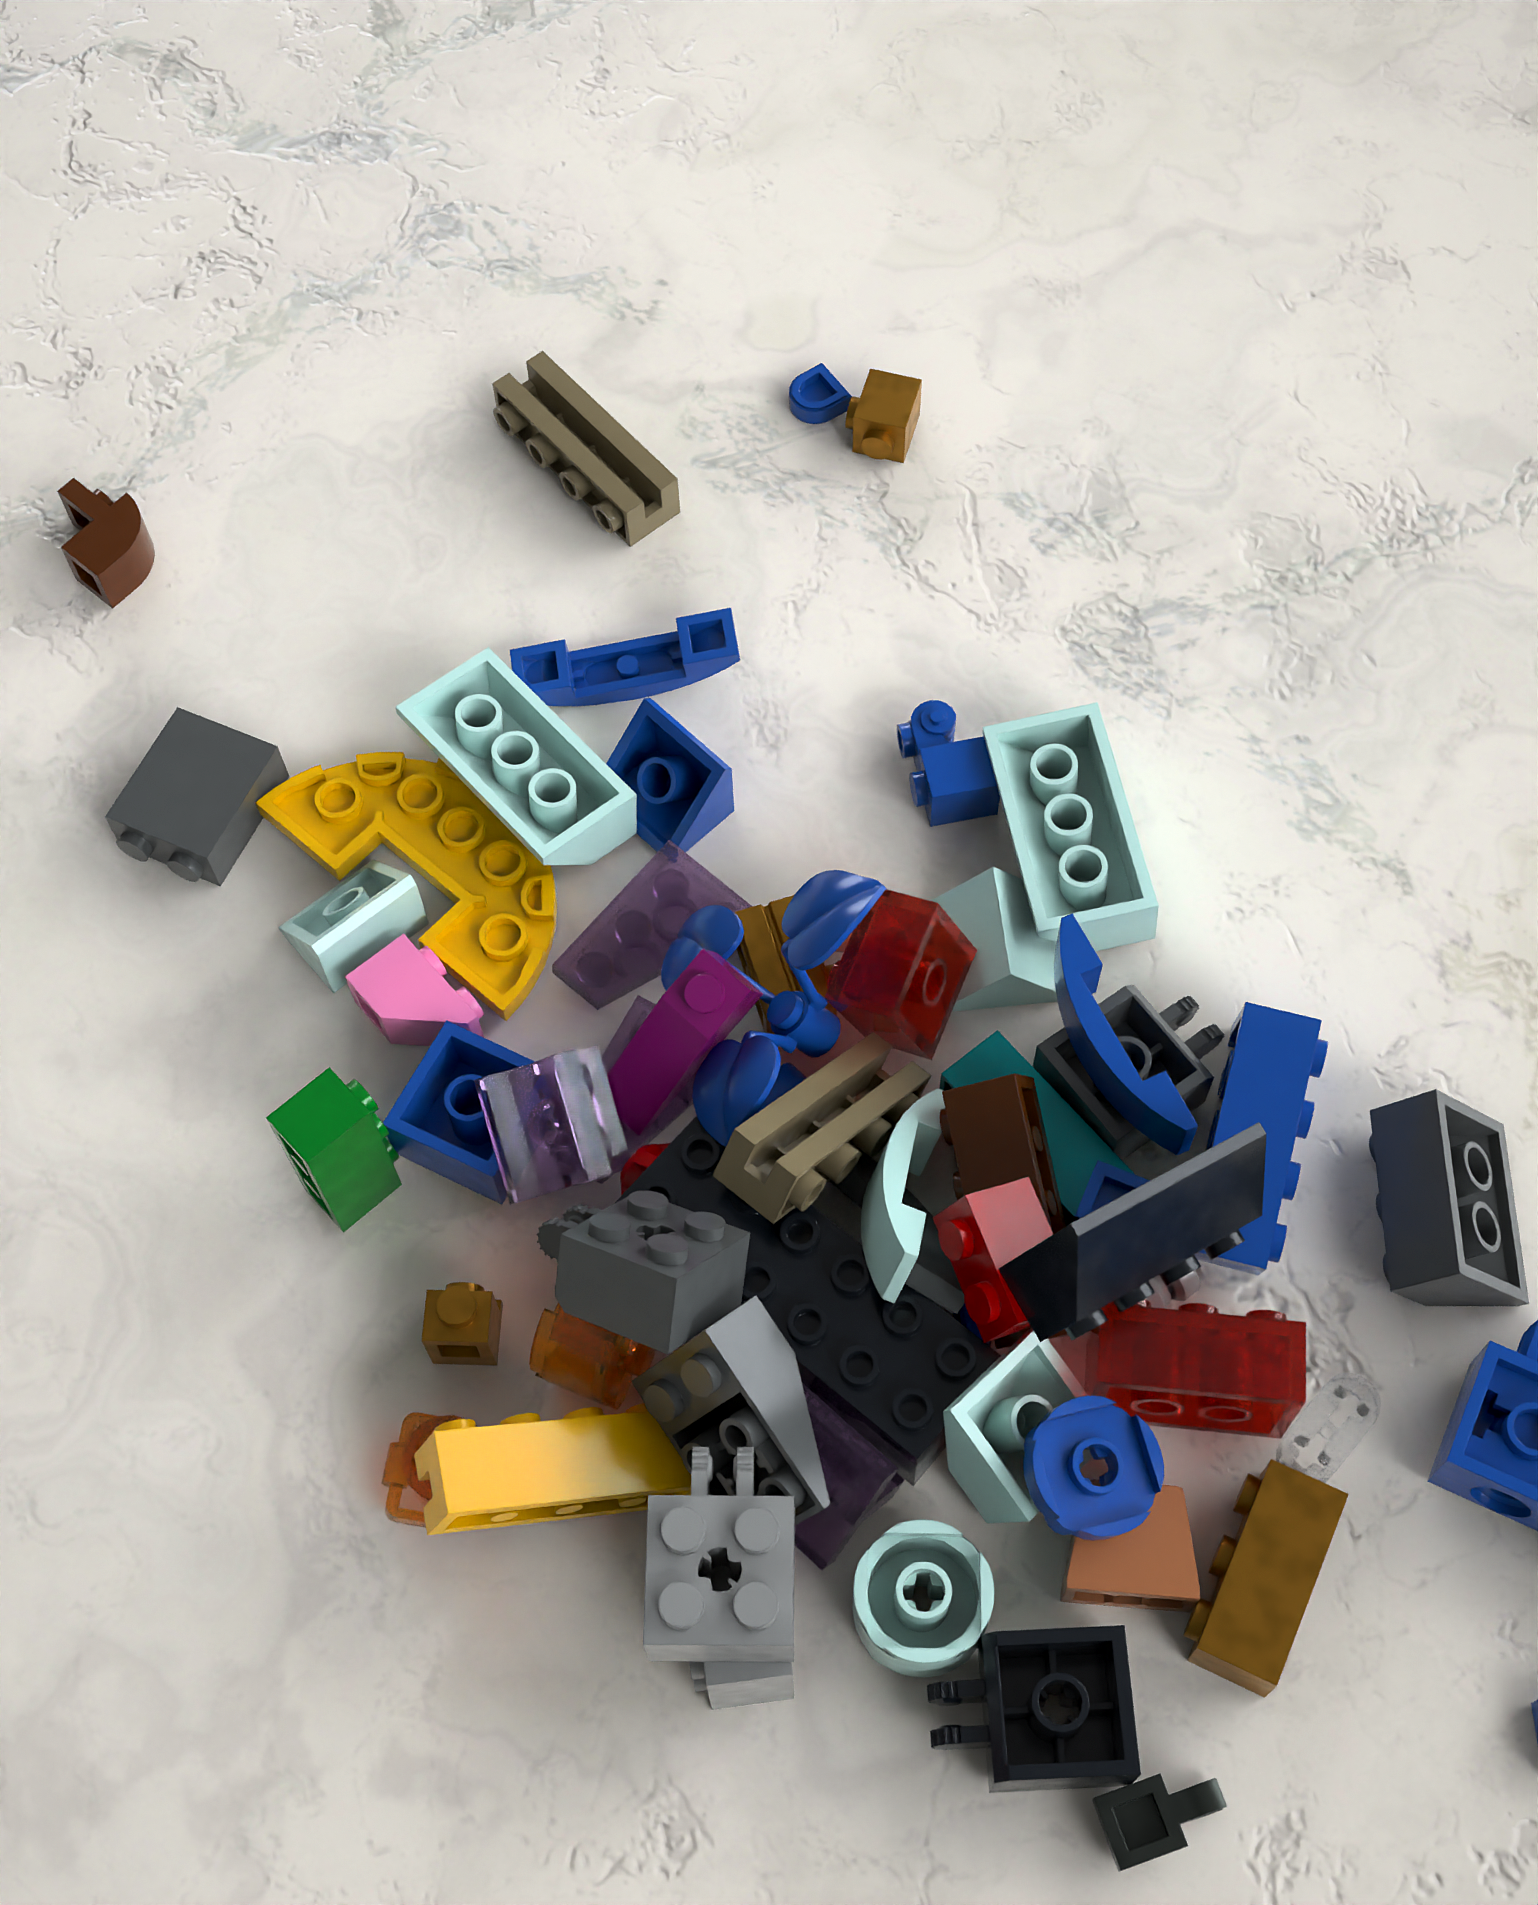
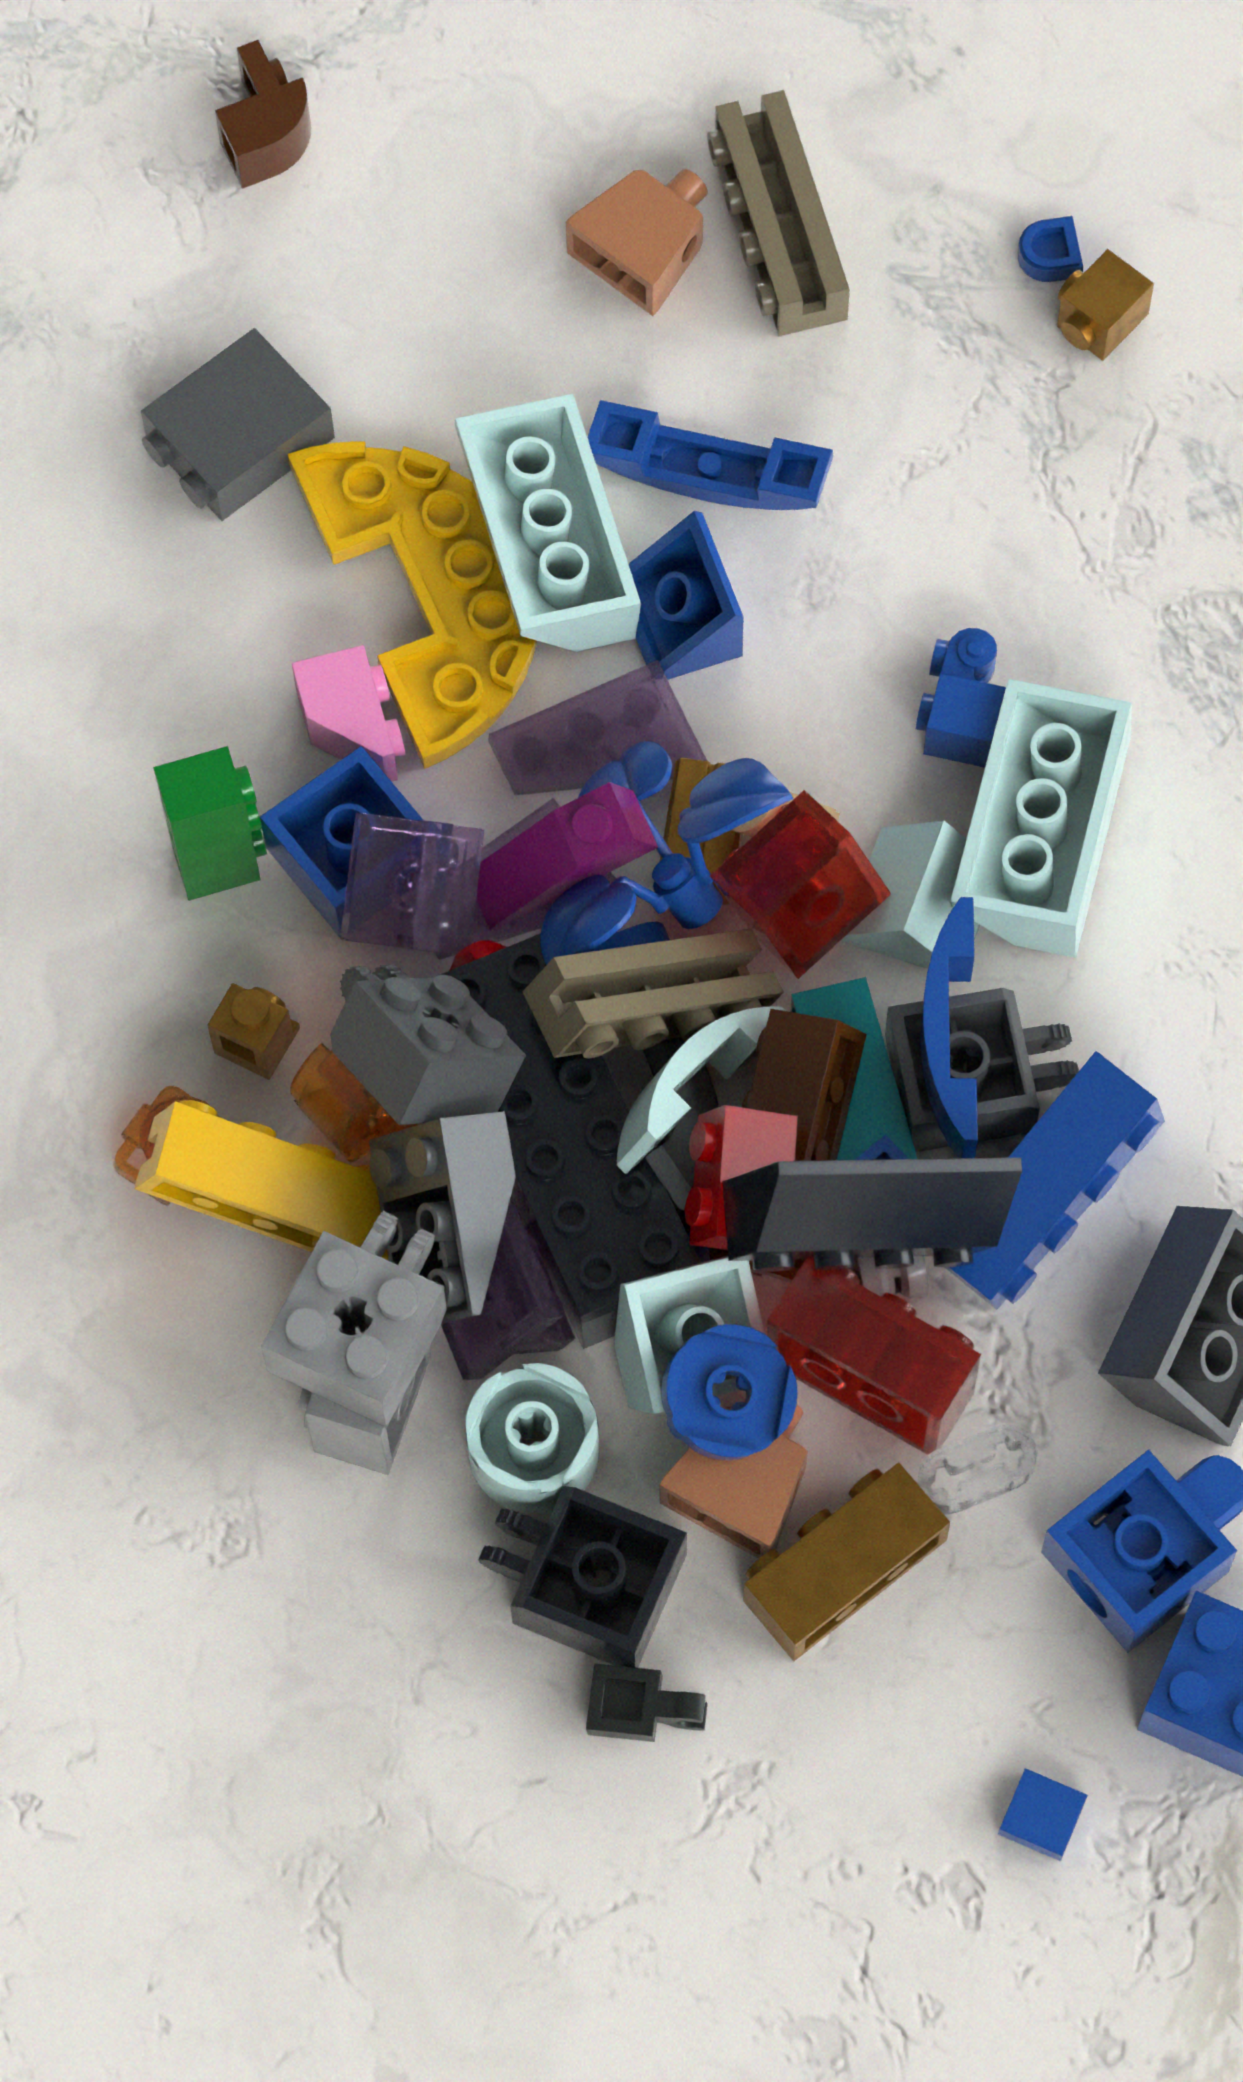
camera: 25 degrees right, 5 degrees up
(356, 921) = (329, 612): light aqua slope -> none
(476, 510) = (640, 235): none -> nougat torso

